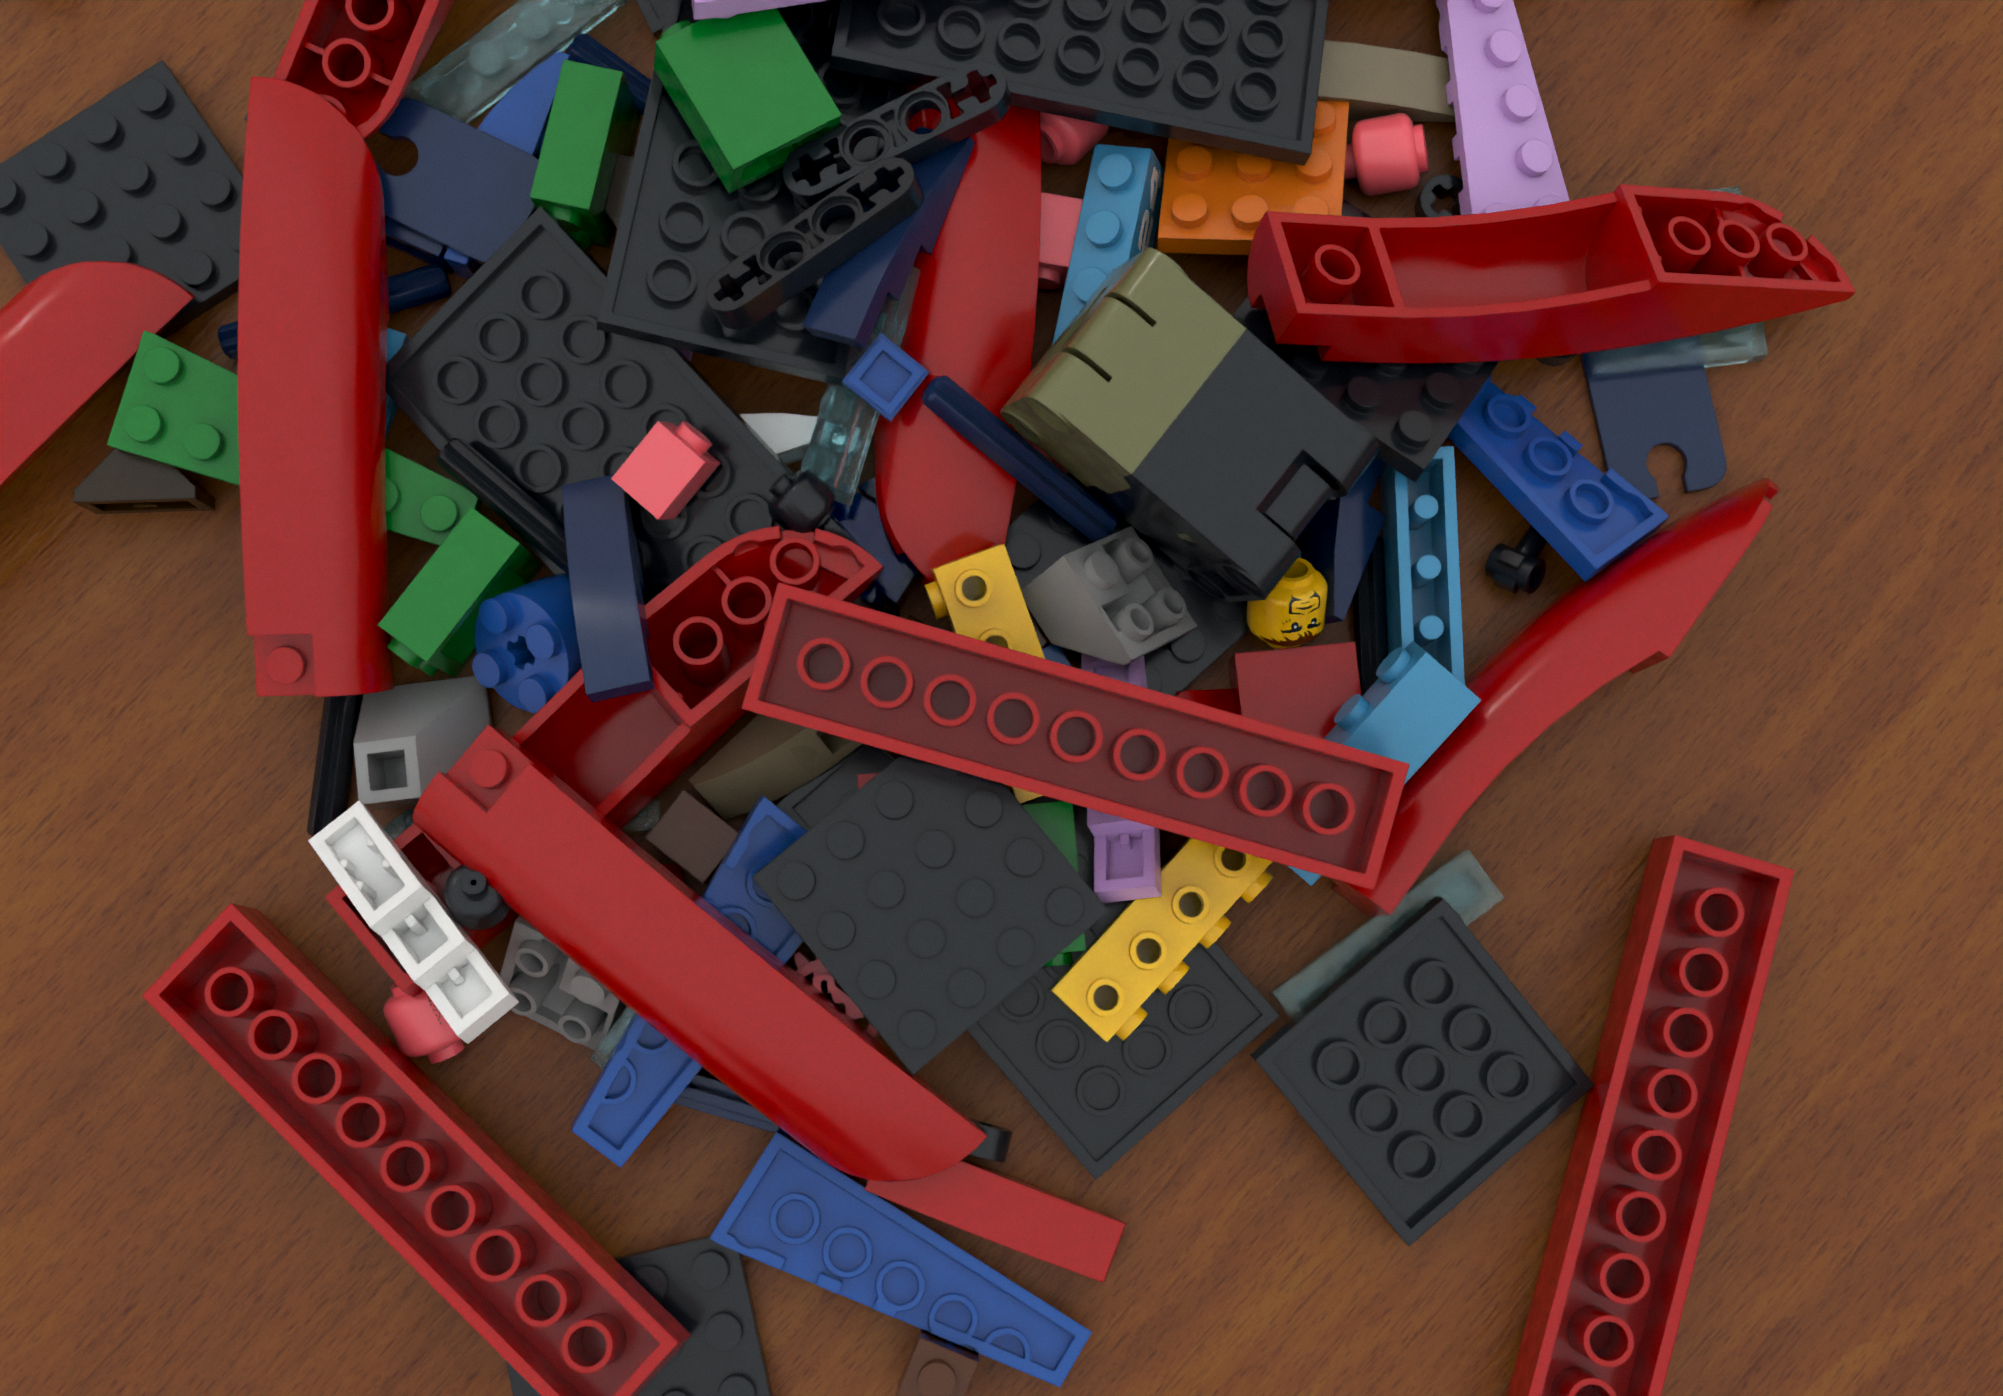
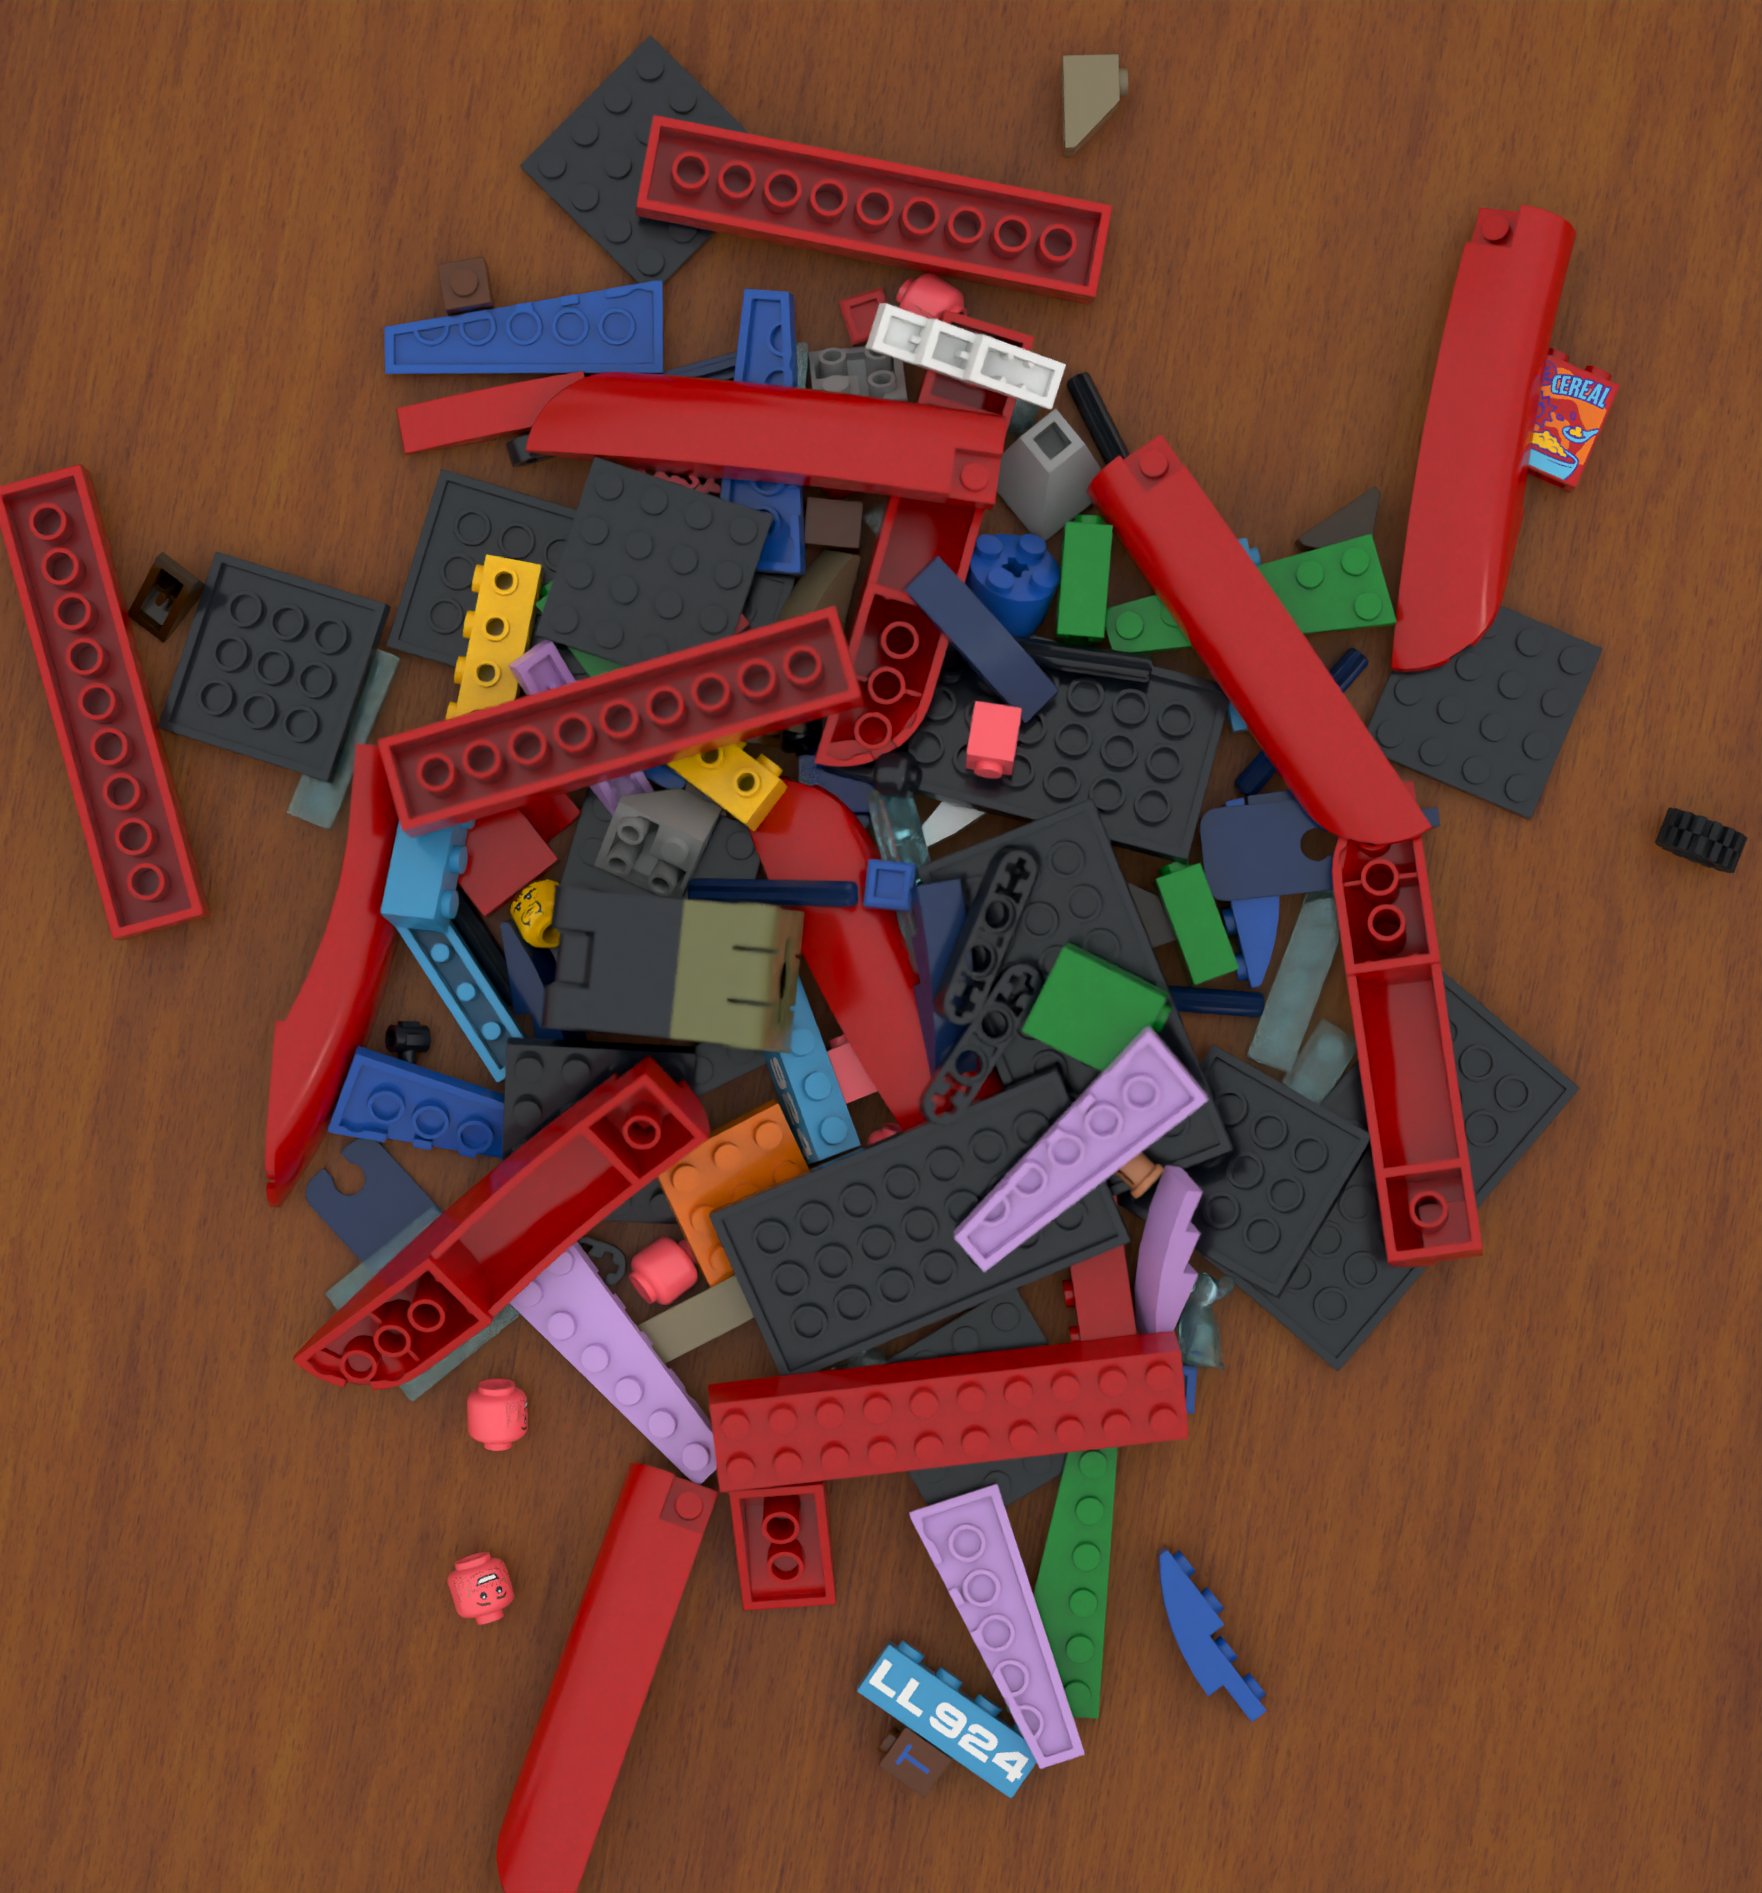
camera: 155 degrees right, 5 degrees up
(95, 1147) = (1089, 96): none -> dark tan slope
(473, 900) = (933, 388): black piece -> none
(510, 1052) = (860, 314): none -> red tile
(1494, 1230) = (165, 597): none -> dark brown slope
(1656, 116) = (497, 1413): none -> coral head

